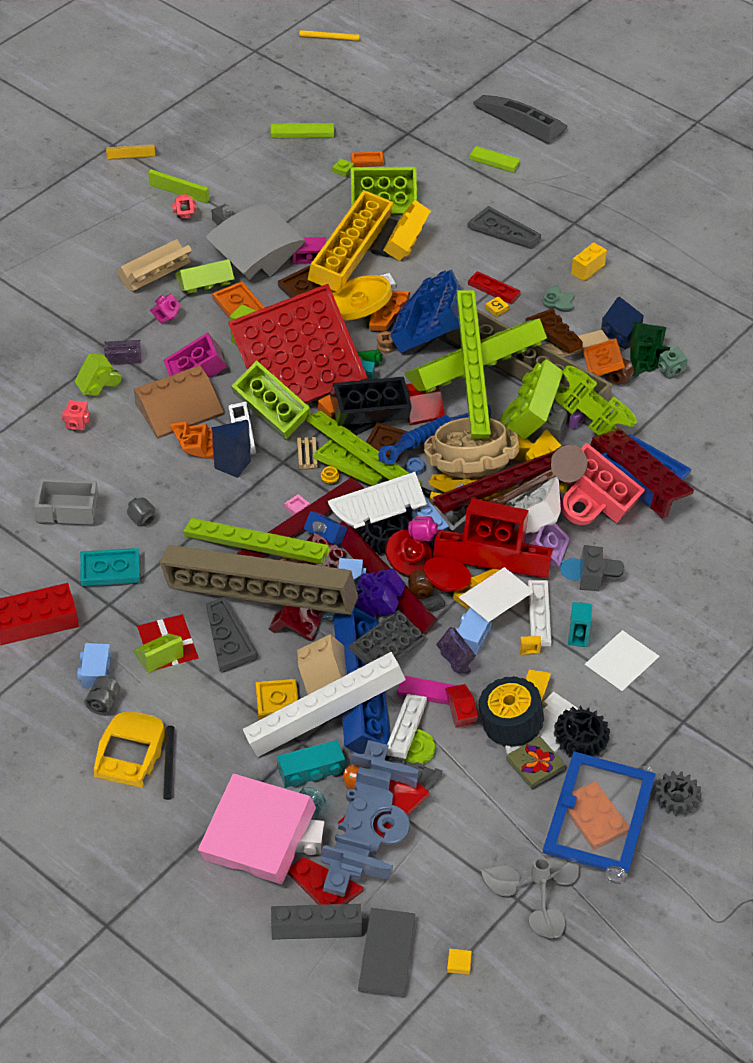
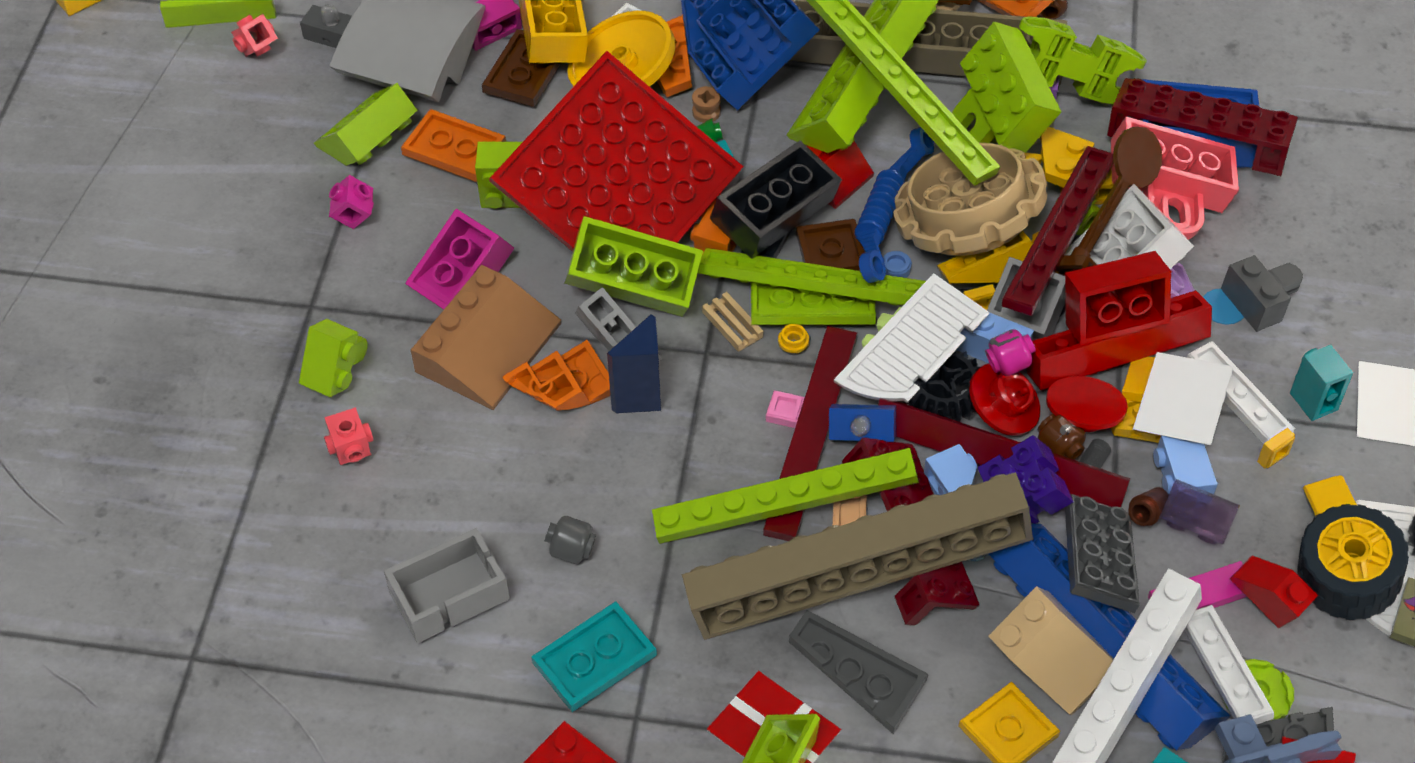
camera: 30 degrees left, 5 degrees up
(123, 351) = (336, 298): clear purple bracket -> none
(154, 265) = (279, 145): tan brick -> none
(431, 636) = (1147, 507): none -> copper cone

